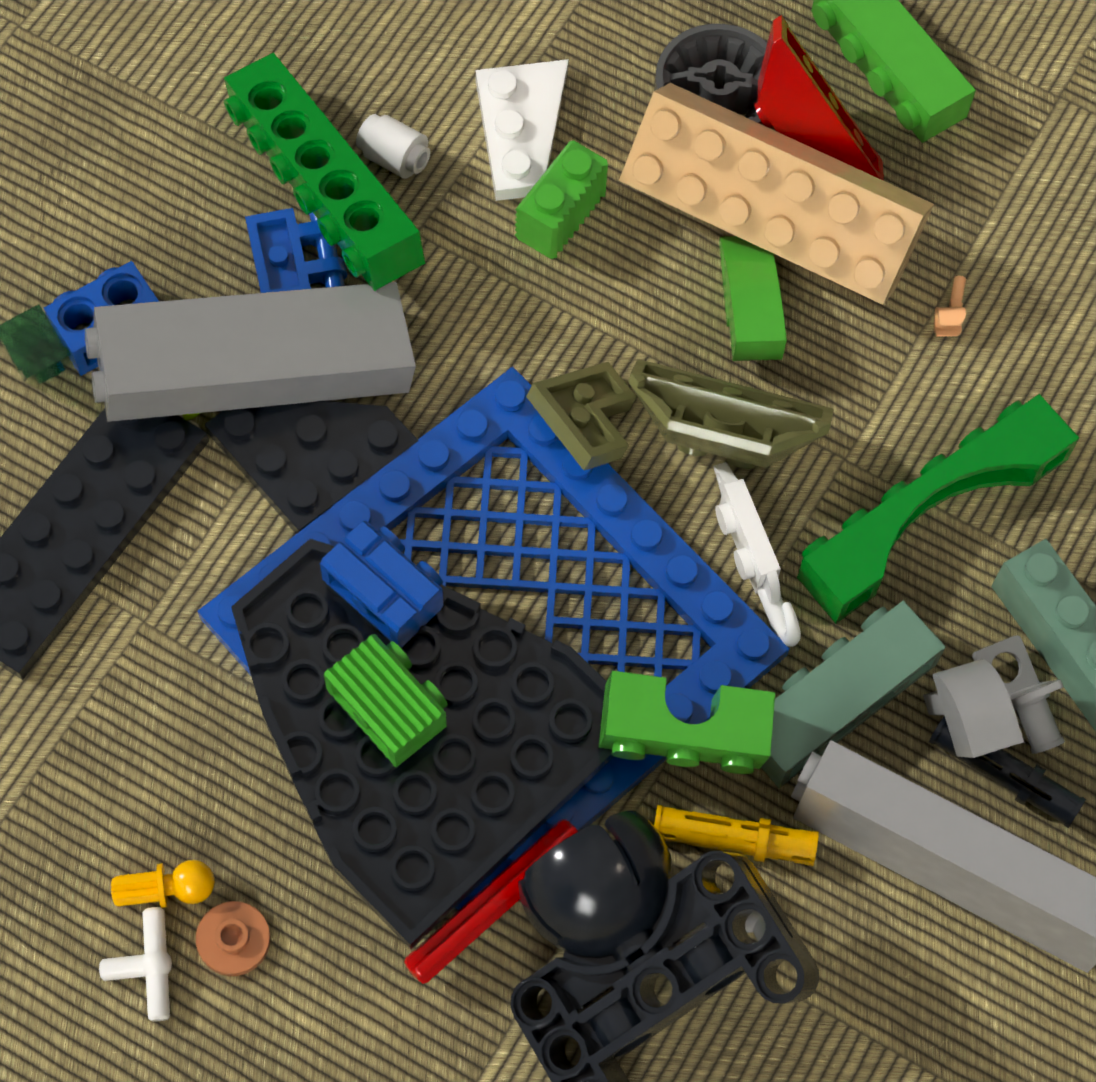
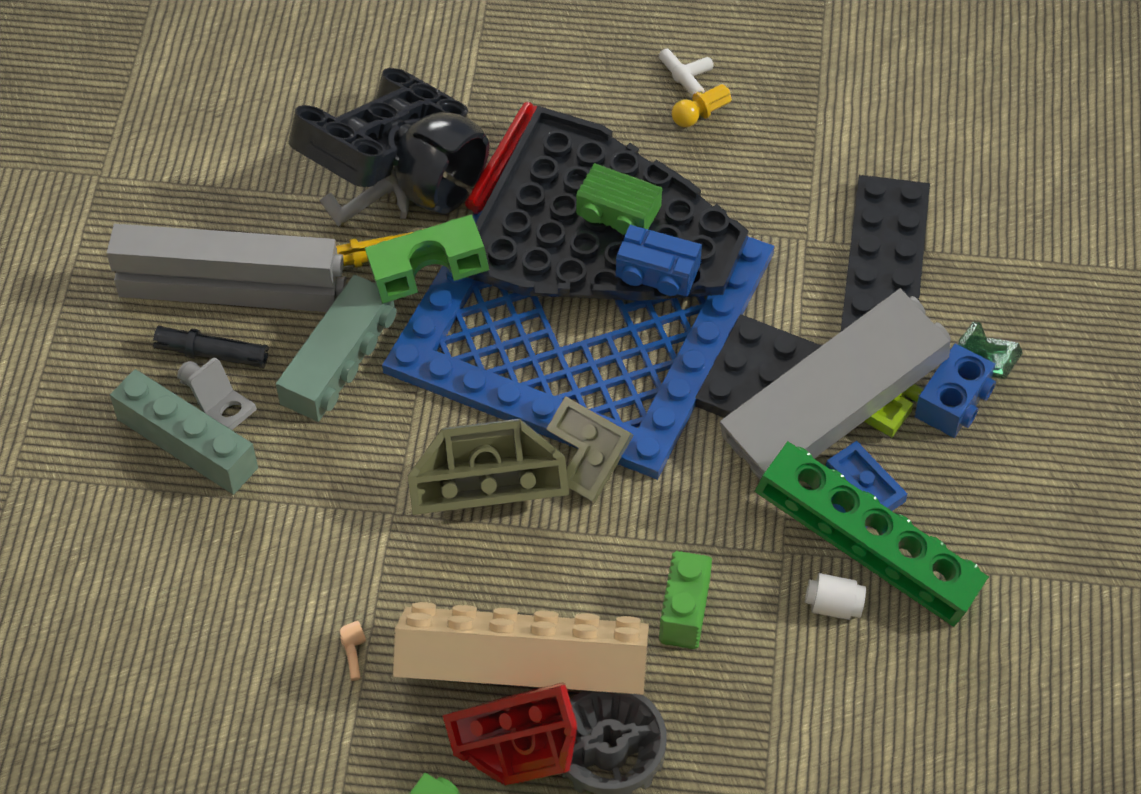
camera: 160 degrees right, 10 degrees down
(233, 938) = (646, 104): nougat piece -> none
(520, 122) = (754, 664): white wing -> none
(752, 301) = (502, 570): bright green slope -> none
(754, 553) = (423, 404): white plate -> none
(975, 709) = (246, 348): light grey brick -> none
(1013, 452) = (269, 549): green arch -> none

